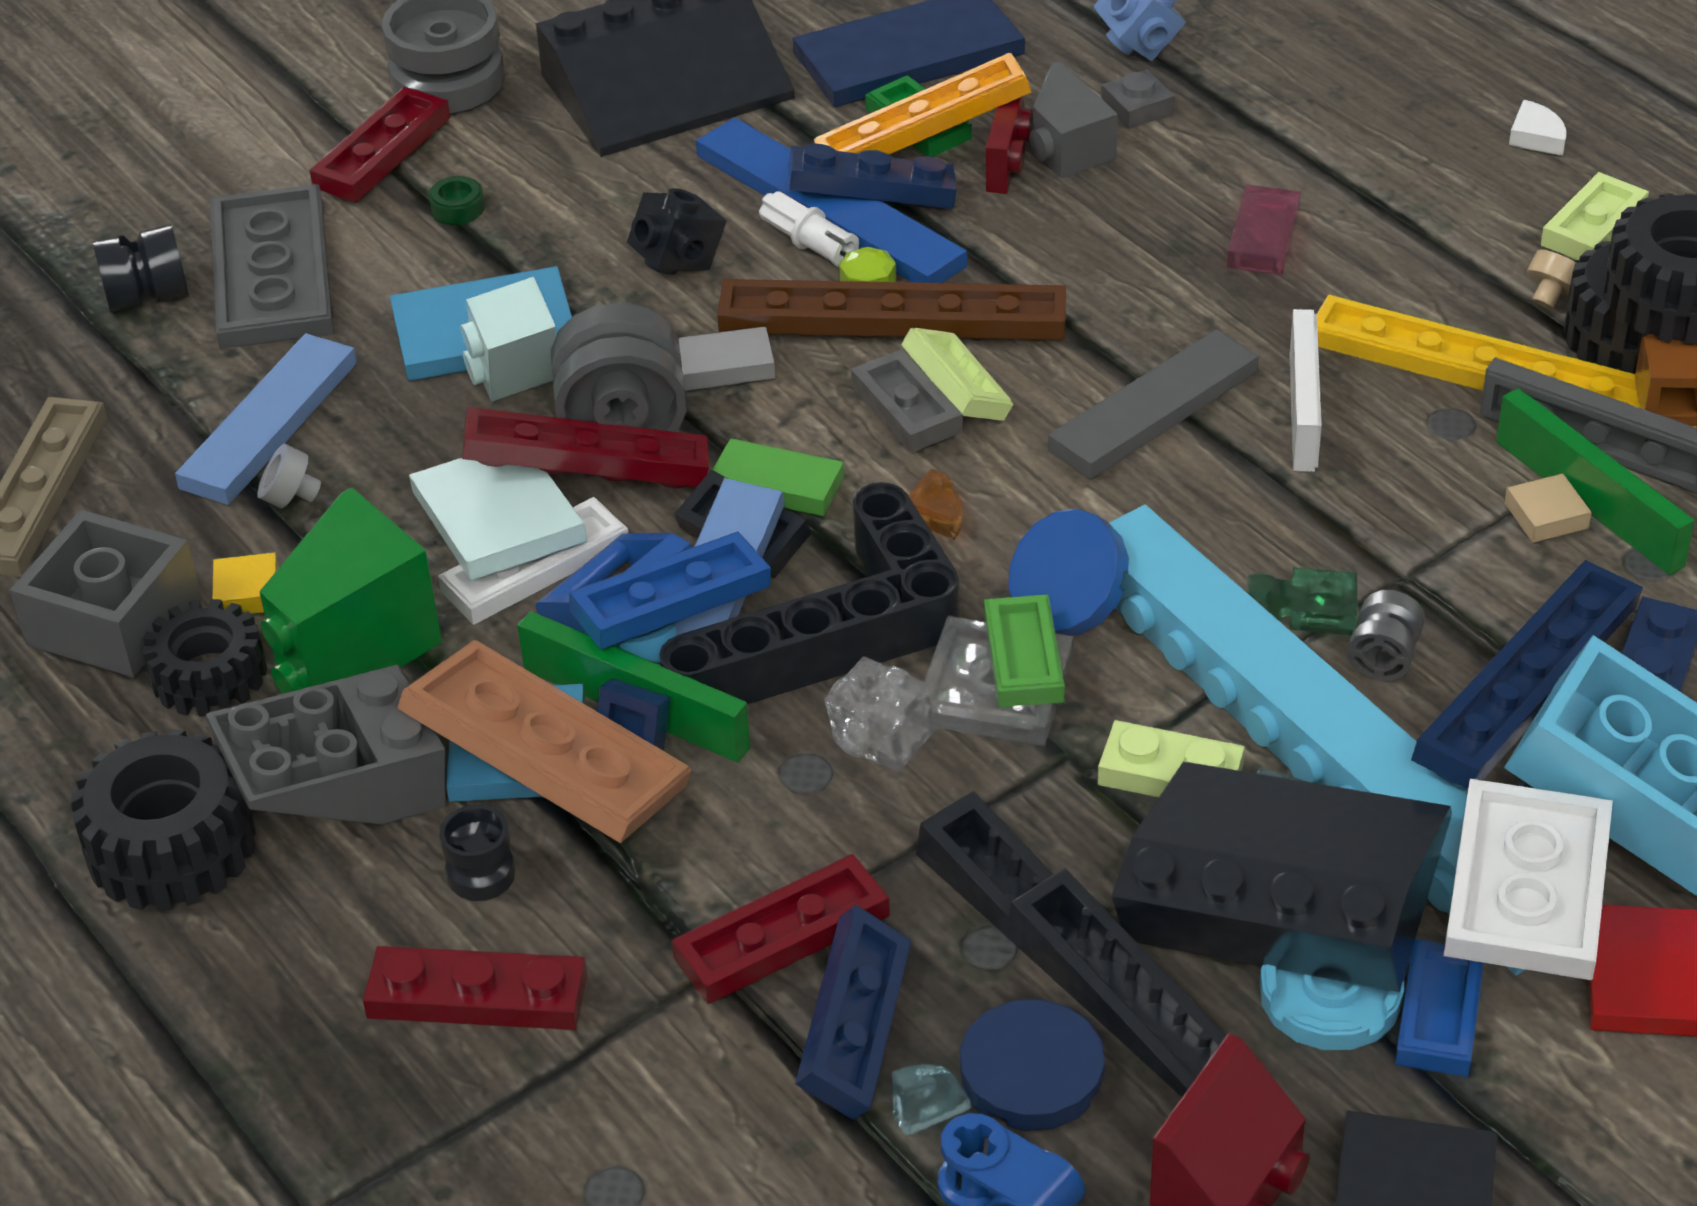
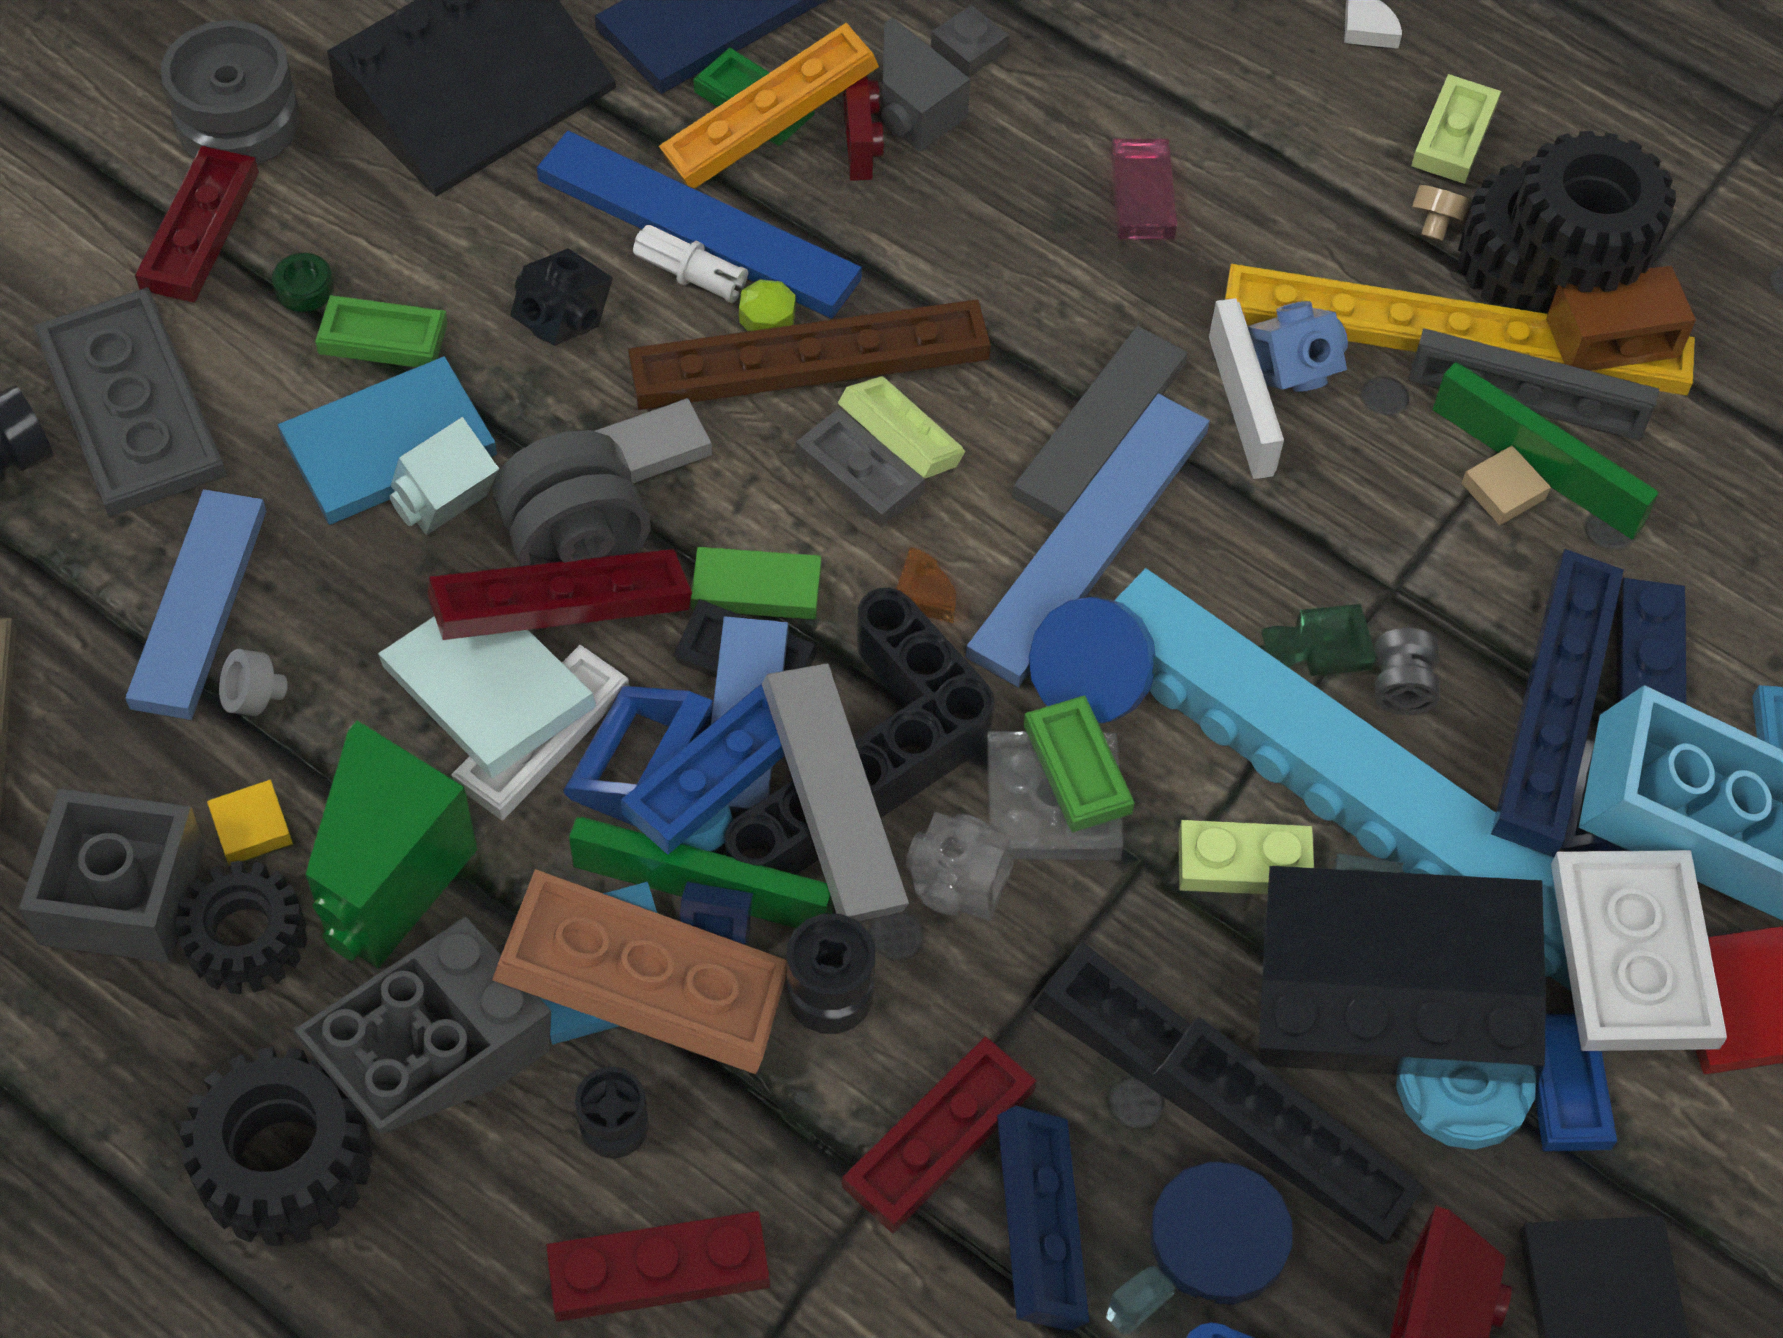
camera: 20 degrees left, 15 degrees up
(509, 244) = (381, 332): none -> bright green tile
(721, 776) = (830, 973): none -> black wheel
(772, 626) = (834, 793): none -> light grey tile
(872, 176) = (737, 190): dark blue plate -> none
(1119, 479) = (1089, 535): none -> medium blue tile
(1348, 366) = (1300, 346): none -> medium blue brick

